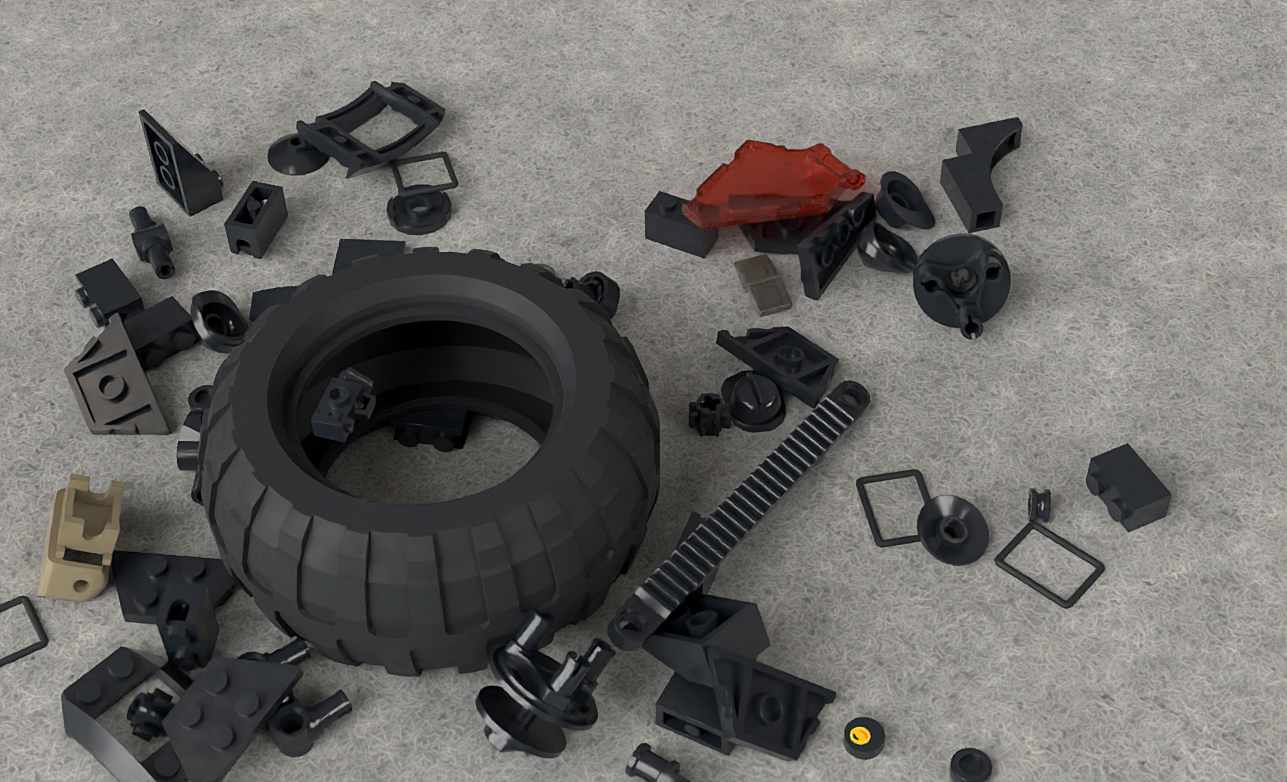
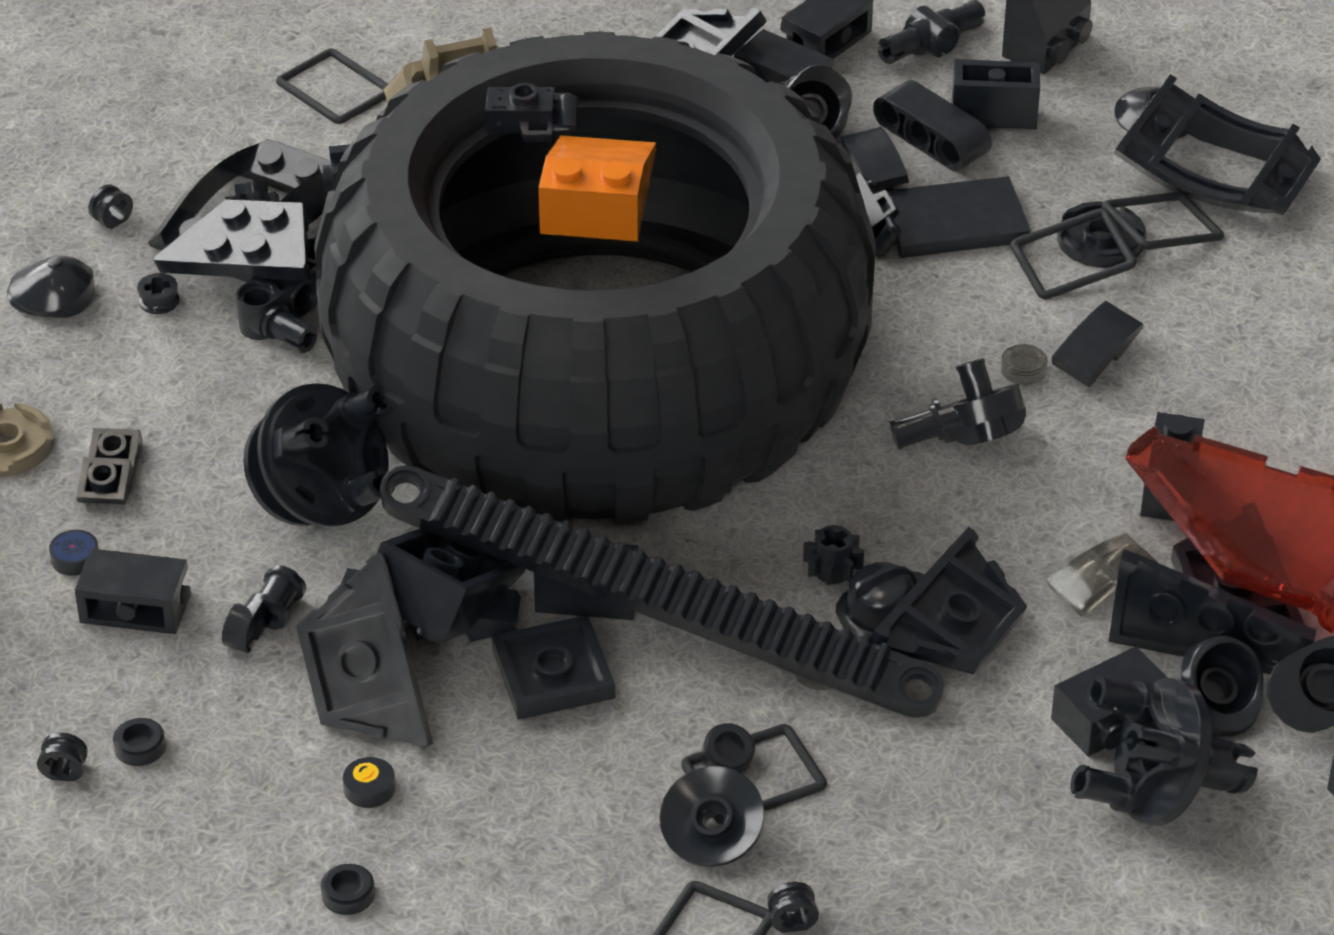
camera: 75 degrees right, 5 degrees down
(262, 265) = (932, 124): none -> black beam
(441, 197) = (1112, 227): none -> black piece
(456, 375) = (595, 187): none -> orange slope
(541, 233) = (1095, 342): none -> black slope
(782, 595) = (553, 667): none -> black plate
(881, 513) = (728, 747): none -> black tile
(888, 304) = (1094, 728): none -> black brick

